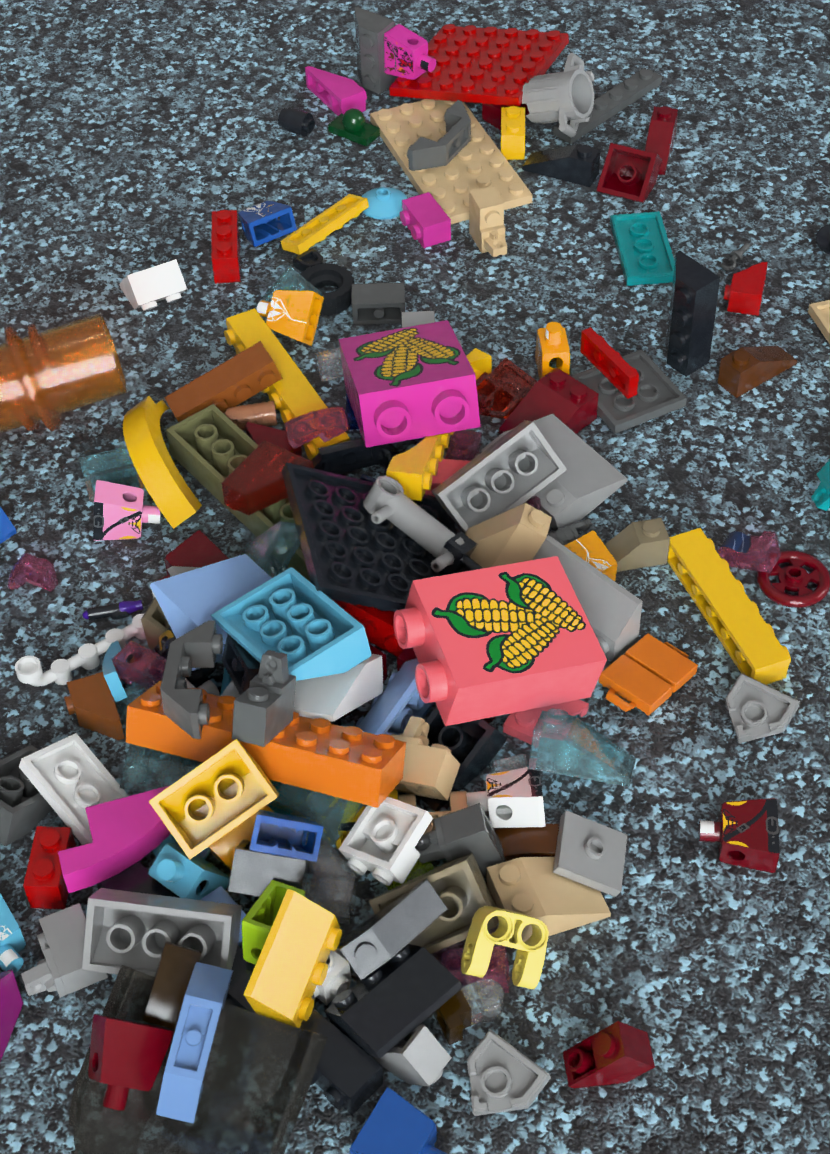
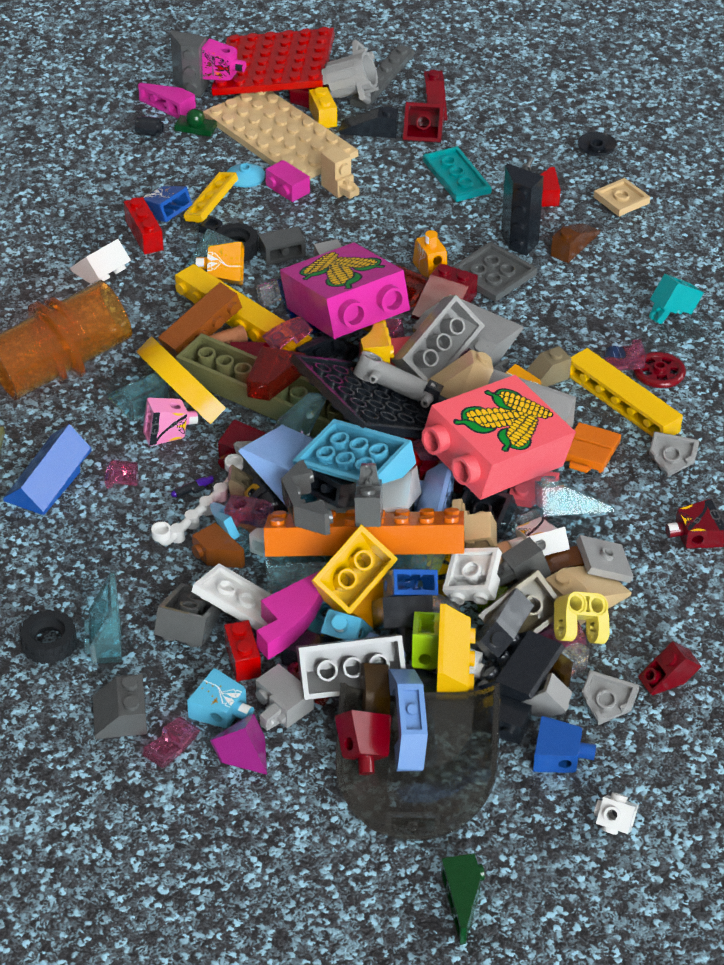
camera: 20 degrees left, 5 degrees down
(431, 154) = (271, 132): dark grey slope -> none
(609, 363) = (474, 253): red plate -> none

